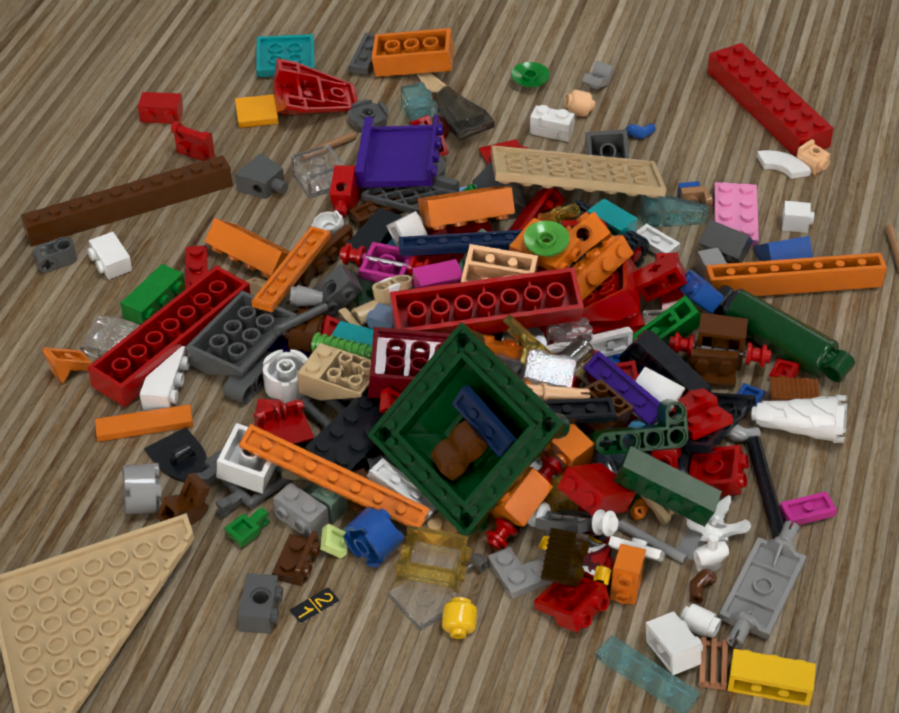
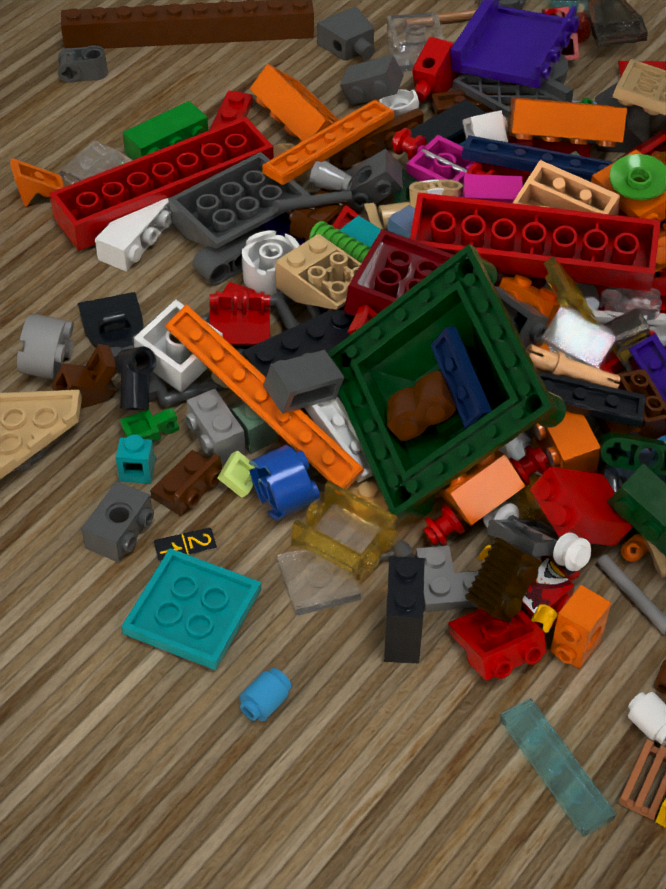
camera: 20 degrees right, 5 degrees up
(109, 255) = (139, 79): white brick -> none
(143, 423) = (91, 274): orange tile -> none
(224, 484) = (134, 378): none -> black piece
(249, 547) = (136, 451): none -> teal brick
(299, 210) = (372, 80): none -> dark grey piece
(343, 649) = (191, 608): none -> teal plate
(362, 456) = (303, 381): none -> dark grey piece
(426, 692) = (265, 694): none -> dark azure brick
(459, 617) = (346, 614): yellow head -> none
(502, 600) = (404, 609): none -> black brick
(651, 553) = (618, 606): white plate -> none
(674, 643) = (606, 736): white brick -> none

